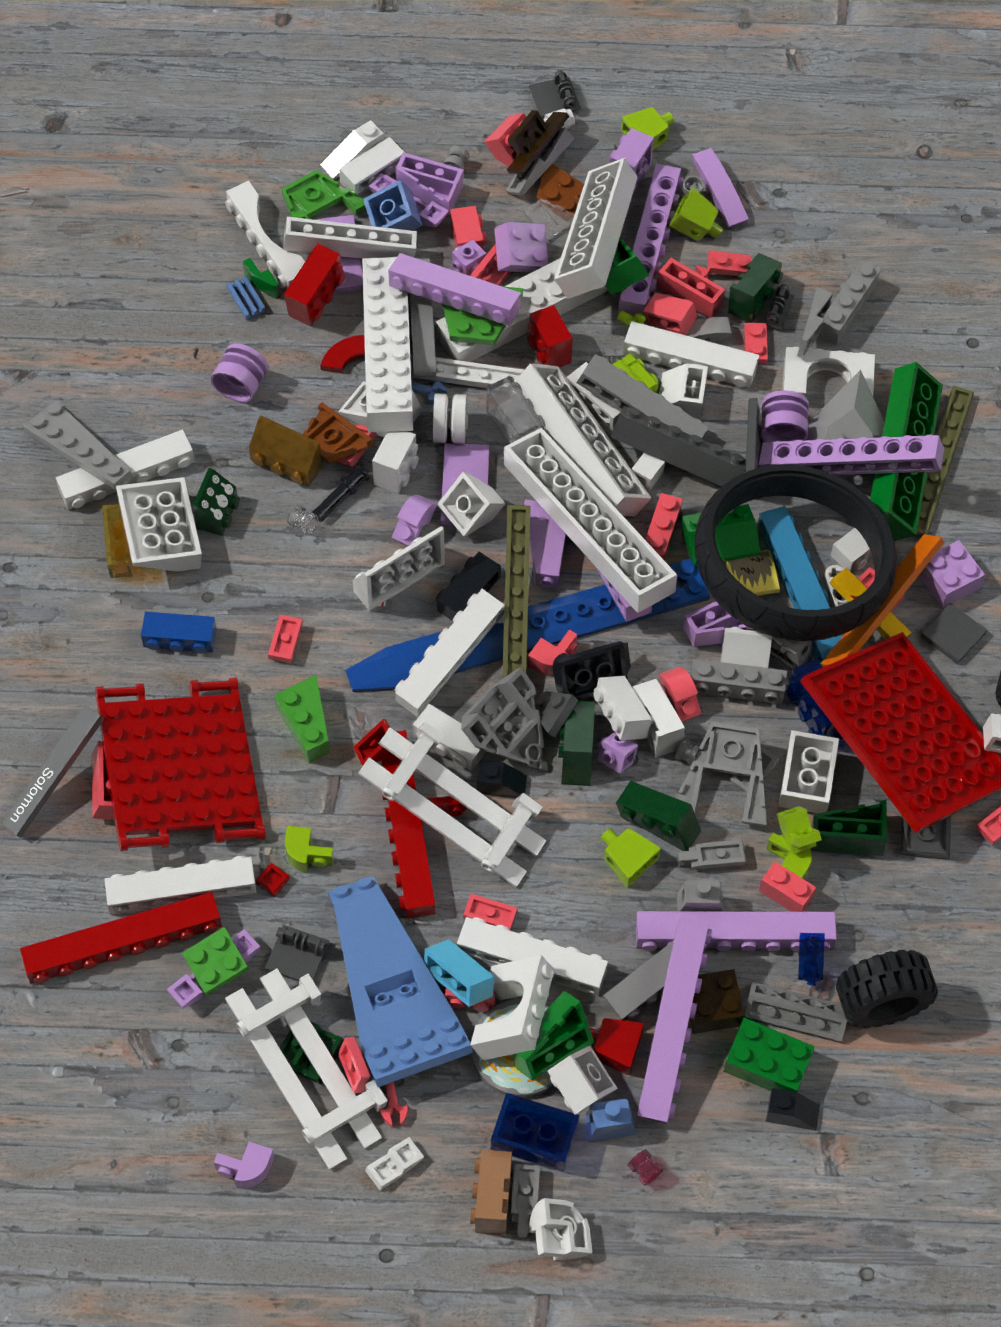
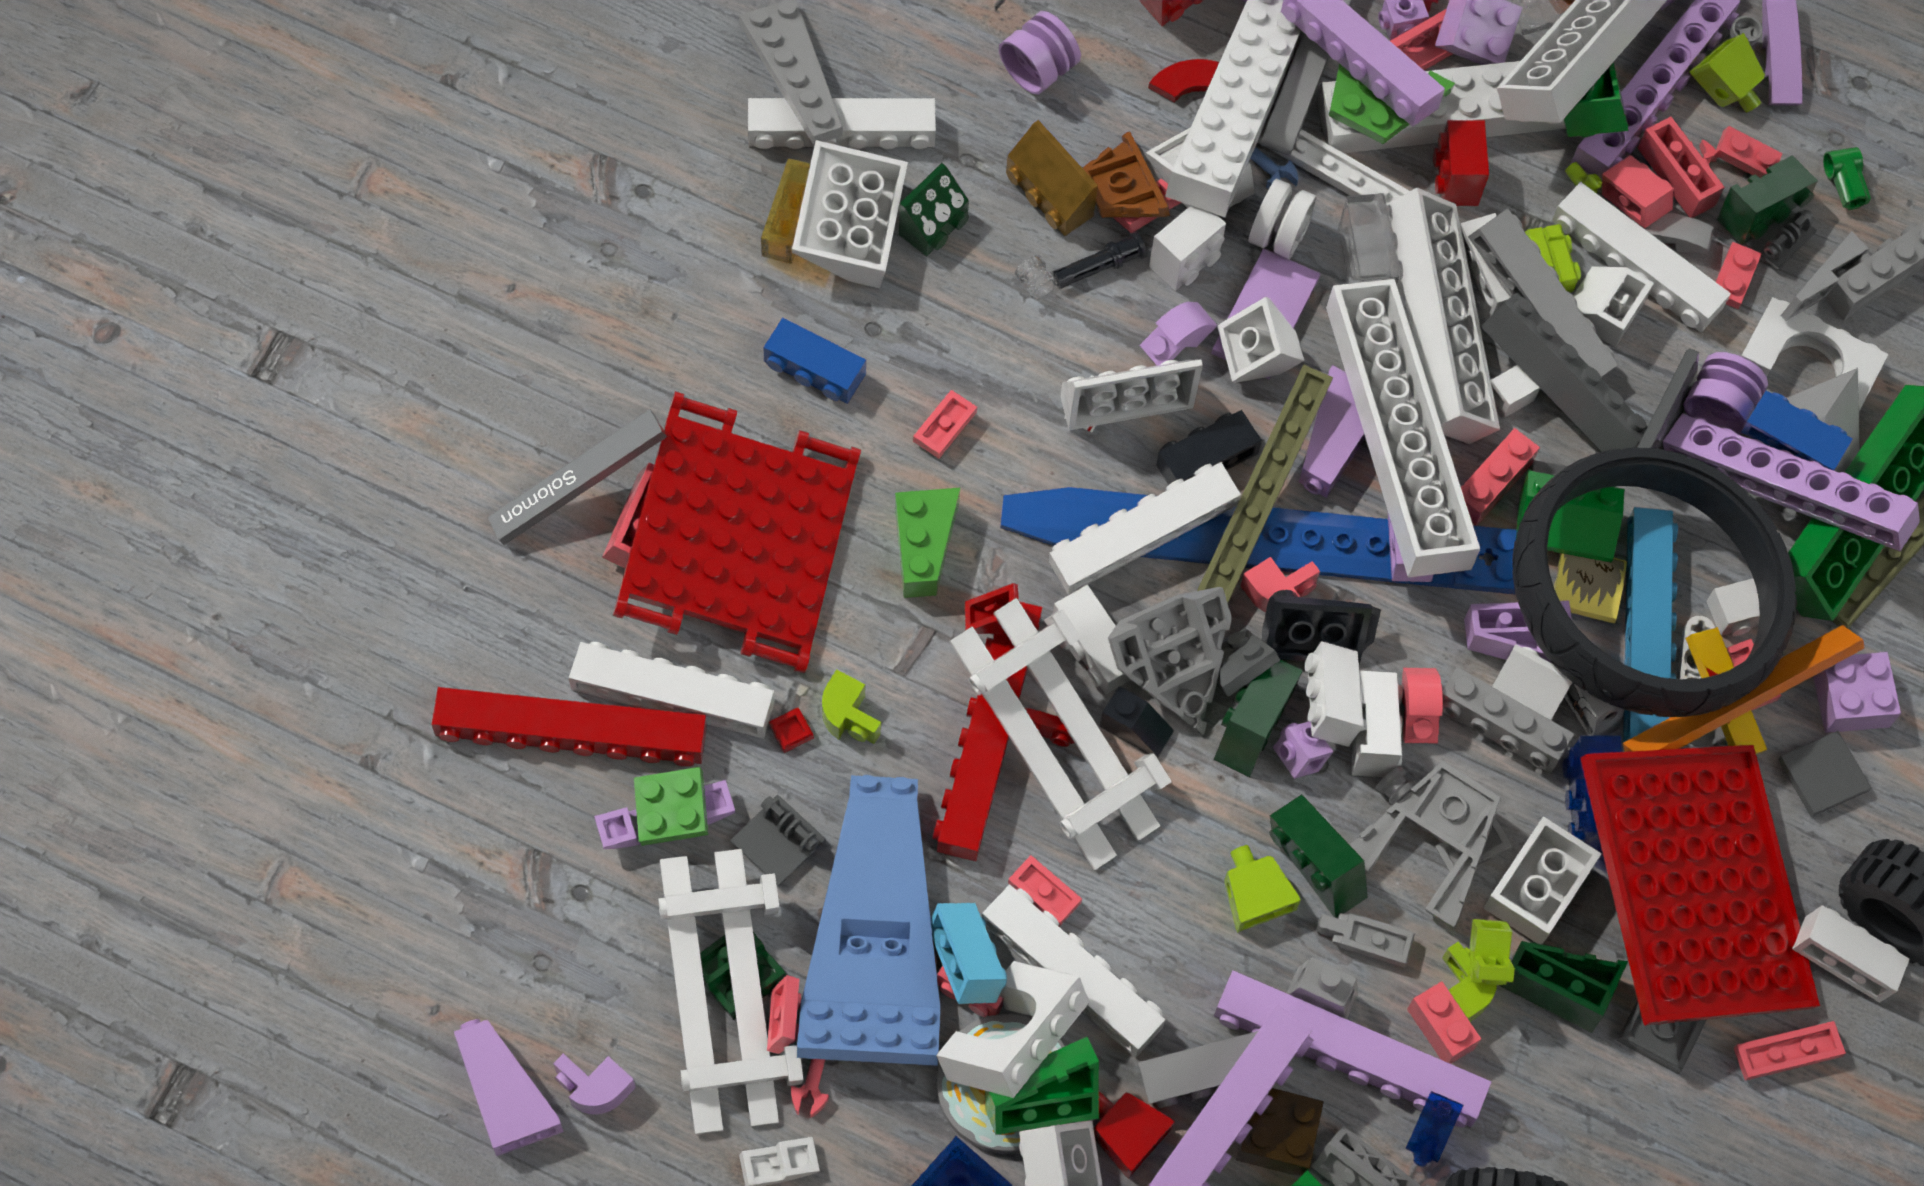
camera: 20 degrees right, 5 degrees up
(188, 1197) = (506, 1095): none -> lavender slope
(795, 250) = (1846, 170): none -> green piece
(840, 422) = (1796, 431): none -> blue brick

